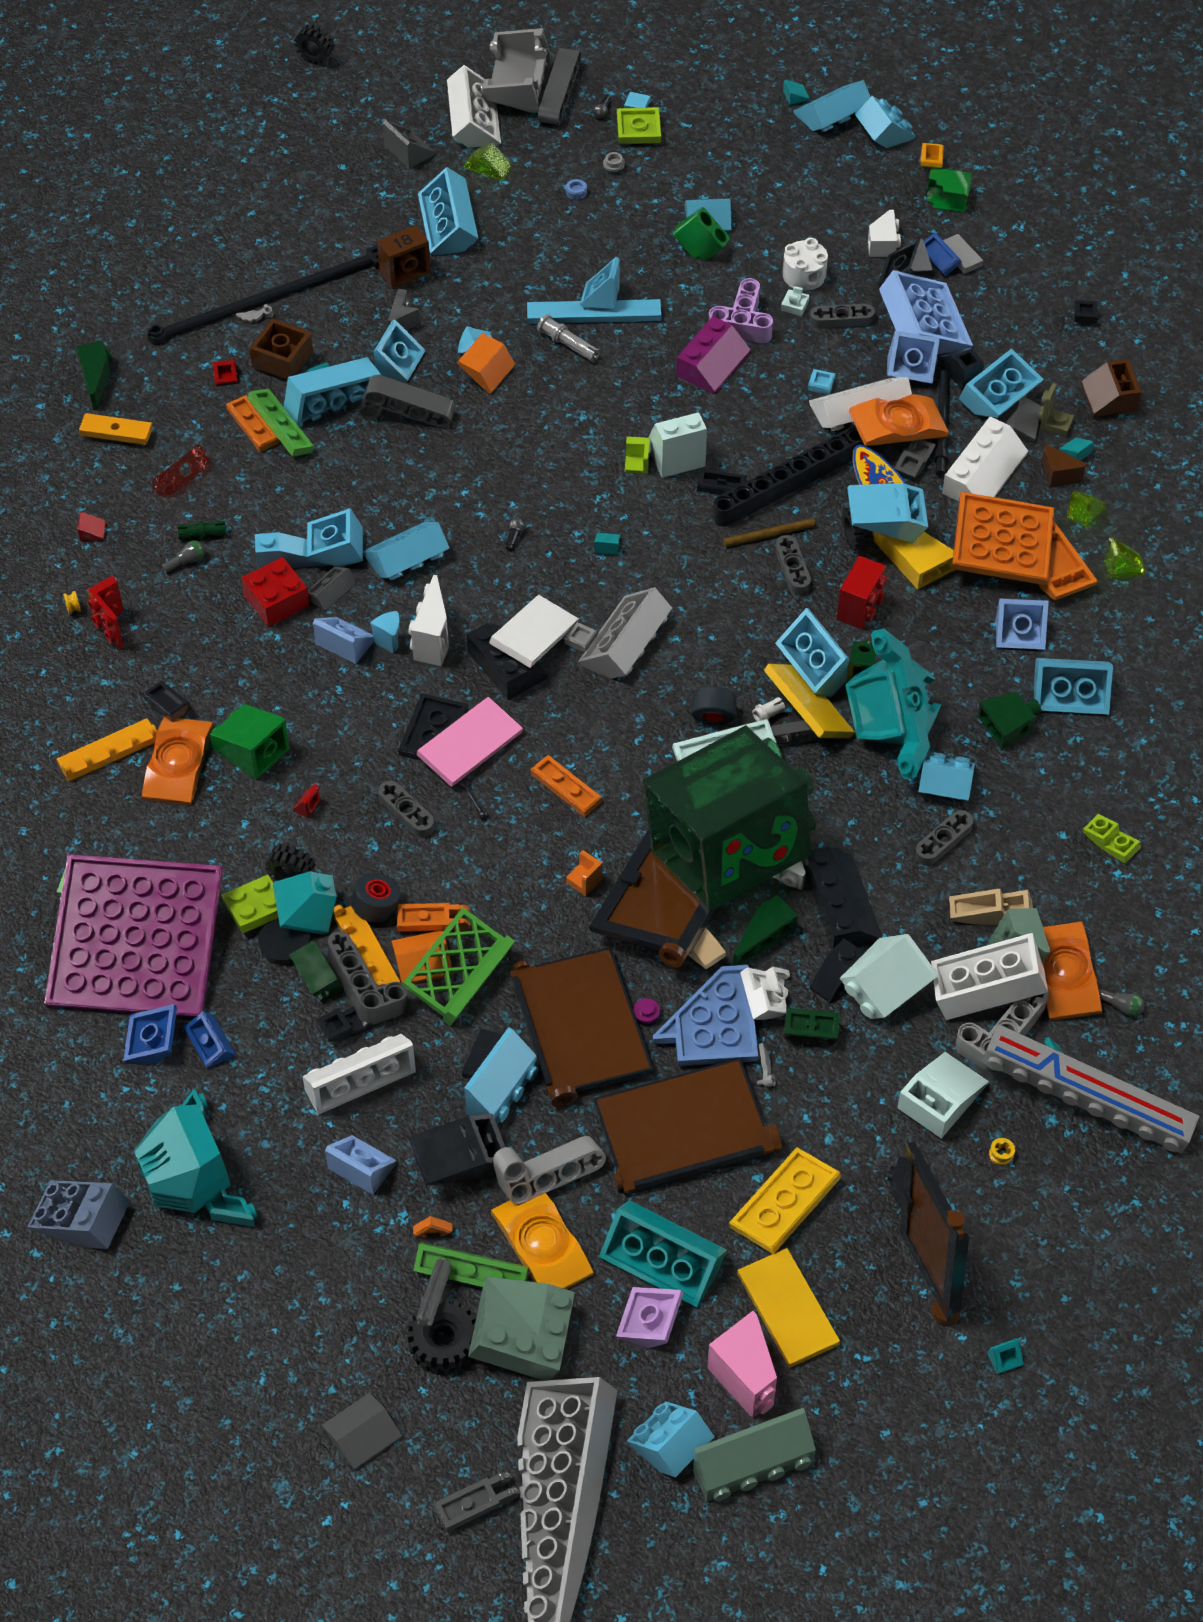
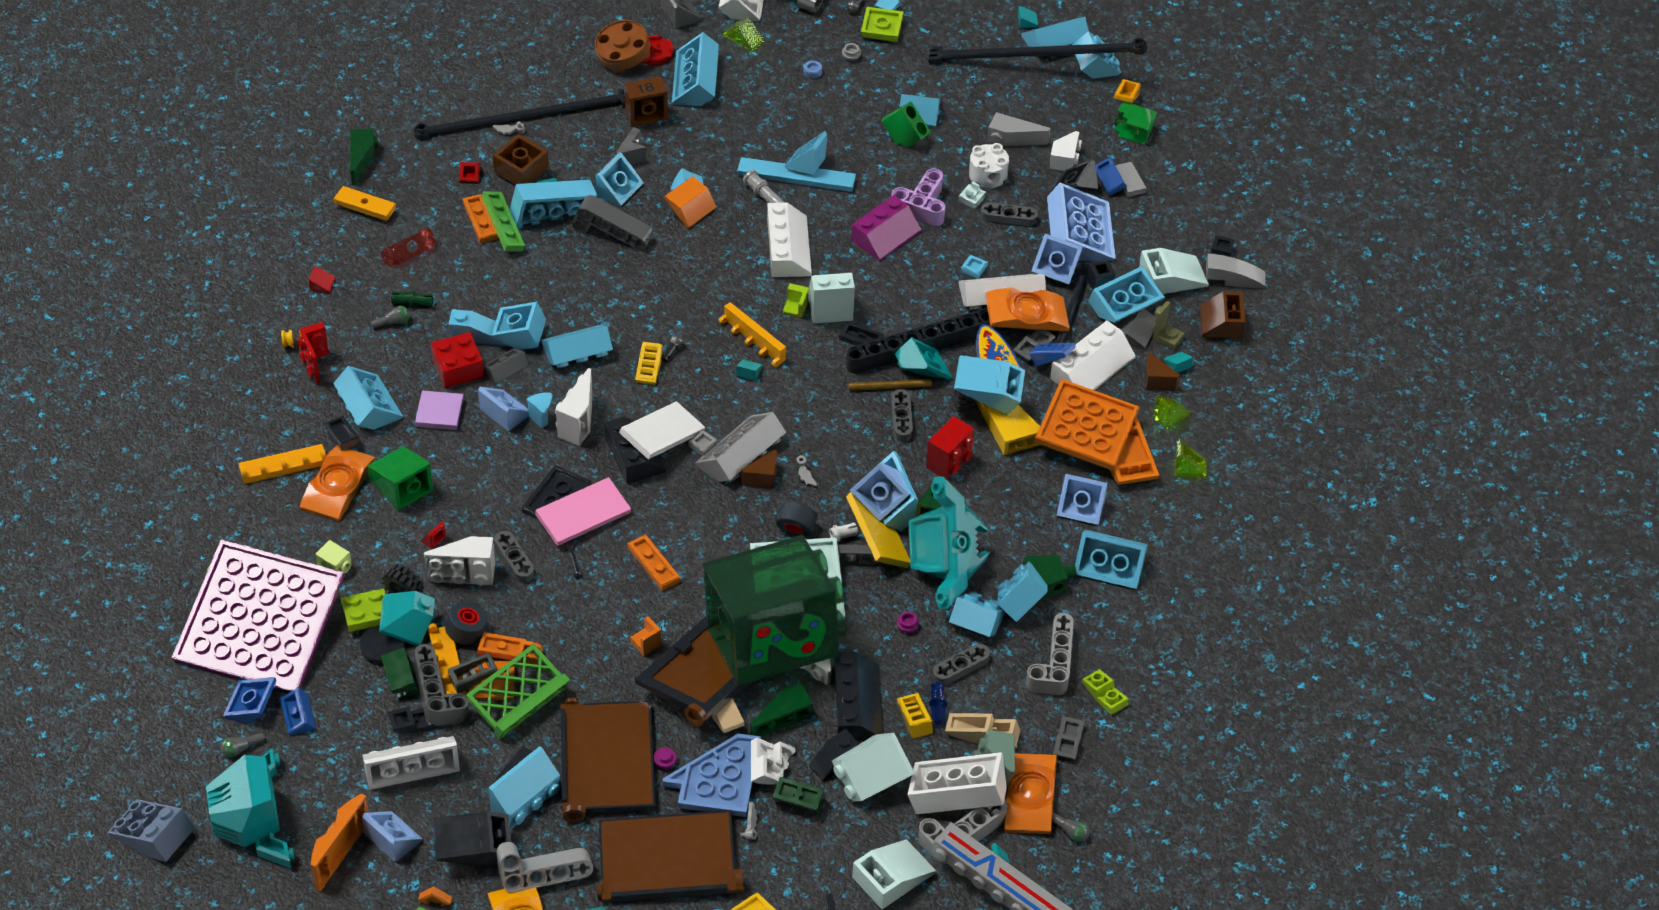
camera: 10 degrees right, 5 degrees down
(147, 1095) = (235, 745): none -> dark grey piece
(184, 655) = (366, 398): none -> medium azure slope
(200, 849) = (334, 557): none -> yellowish green brick
(270, 654) = (439, 410): none -> lavender tile
(304, 1182) = (338, 840): none -> orange slope
(352, 827) = (462, 562): none -> white slope
(358, 197) = (622, 45): none -> dark orange piece
(393, 197) = (660, 50): none -> red tile
(405, 961) = (475, 678): none -> pearl dark grey slope
(493, 542) = (649, 351): none -> yellow slope
(602, 501) = (754, 334): none -> light orange hinge
(607, 389) = (788, 241): none -> white slope
(658, 658) = (761, 472): none -> reddish brown slope
(704, 651) = (804, 473): none -> light grey piece
(709, 150) = (937, 53): none -> black hinge
(797, 497) = (922, 360): none -> teal slope
(805, 656) = (881, 490): none -> light blue slope
(823, 222) = (1016, 132): none -> light grey slope
(871, 800) = (907, 622): none -> magenta plate
(917, 919) = (915, 716): none -> yellow slope
(932, 887) = (937, 703): none -> clear blue axle
(937, 464) = (1050, 352): none -> blue slope
(990, 741) = (1021, 591): none -> medium azure slope
(1041, 347) = (1173, 270): none -> light aqua slope
(1051, 811) = (1043, 677): none -> light grey beam
(1088, 899) = (1068, 738): none -> dark grey slope
(1107, 337) = (1234, 272): none -> light grey slope

